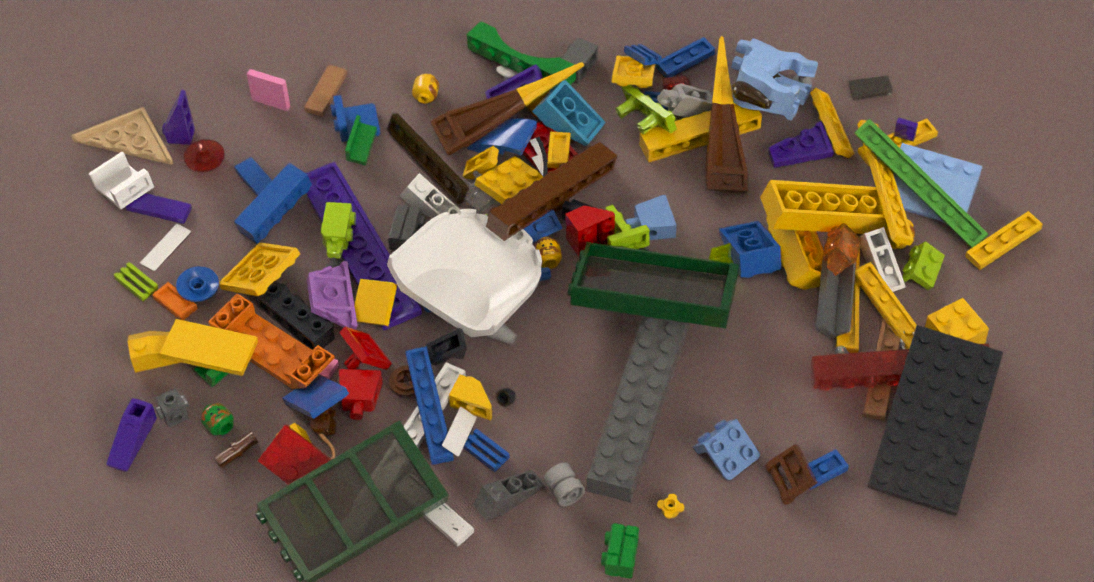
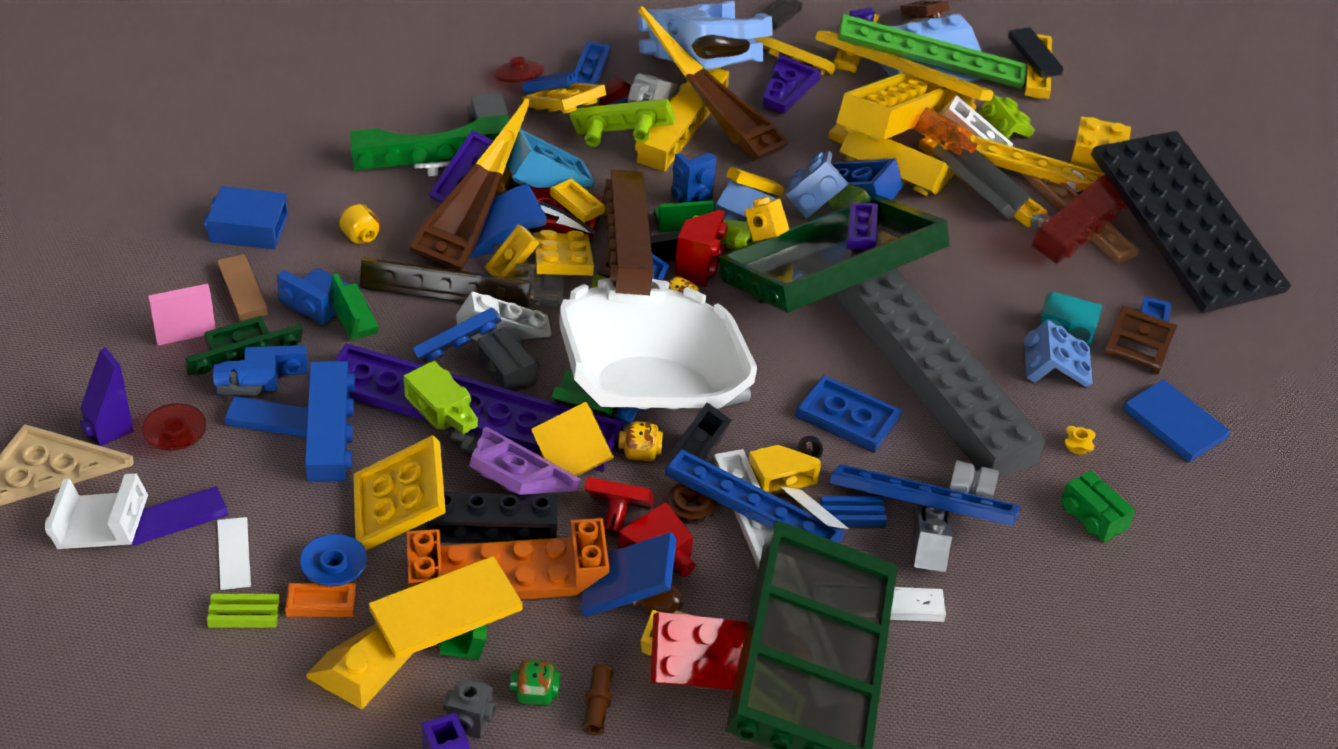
camera: 50 degrees left, 10 degrees down
(276, 149) = (259, 369): none -> blue plate
(284, 124) = (230, 341): none -> dark green bracket
(371, 46) = (247, 217): none -> blue brick
(389, 196) = (458, 335): none -> blue plate
(419, 327) = (641, 441): none -> yellow head
(527, 470) = (926, 494): none -> blue tile
(558, 392) = (848, 413): none -> blue tile
(621, 201) = (673, 216): none -> green panel
(636, 235) = (766, 218): none -> yellow brick
(638, 34) = (518, 70): none -> clear red dish
(641, 180) = (693, 178): none -> blue bracket
(682, 205) = (755, 181): none -> yellow tile
(686, 279) = (862, 226): none -> dark purple tile
(712, 233) = (815, 185): none -> medium blue bracket
(750, 540) = (1176, 420): none -> blue tile
(765, 429) = (1082, 314): none -> teal piece
(965, 146) = (925, 9): none -> reddish brown plate
(1006, 229) = (1035, 52): none -> black tile

